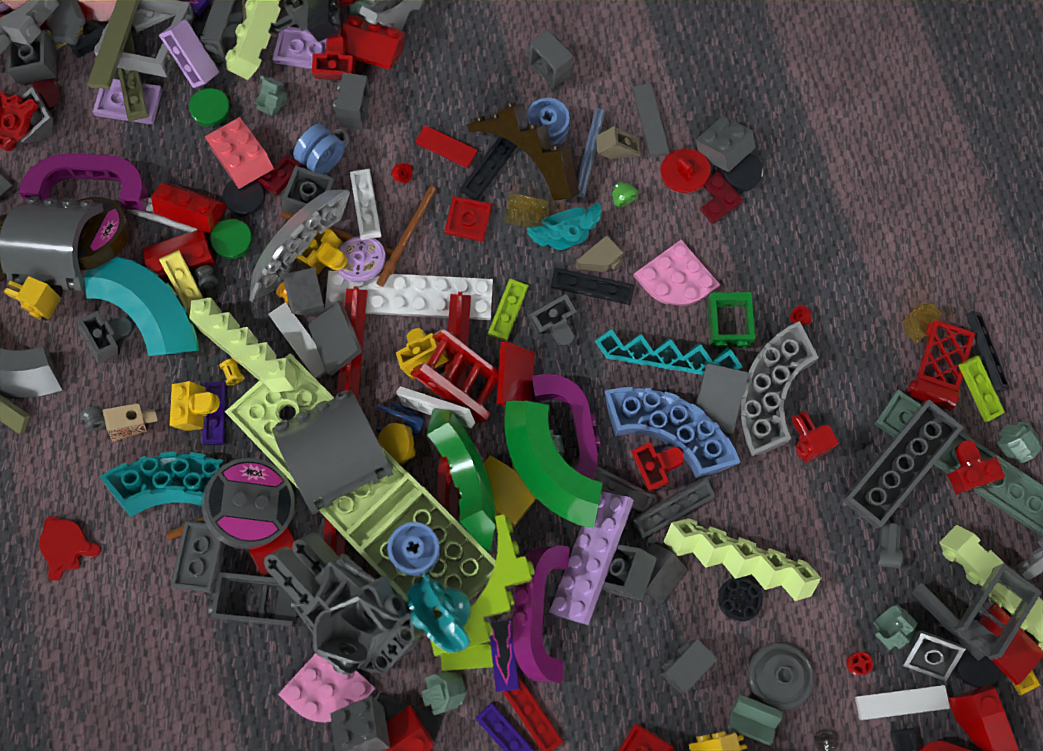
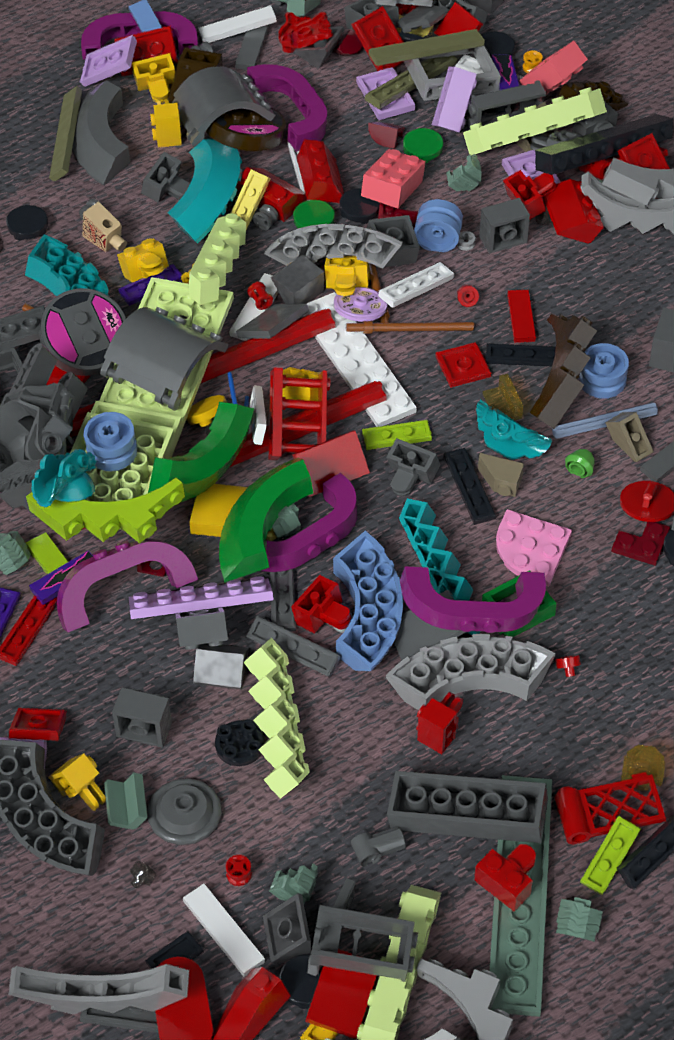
camera: 65 degrees right, 20 degrees down
(63, 482) = (27, 222): none -> black tile
(65, 66) = (377, 31): none -> red tile
(175, 128) = (385, 133): none -> dark red brick
(298, 332) = (260, 295): none -> red bush
(755, 319) = (472, 615): none -> magenta arch

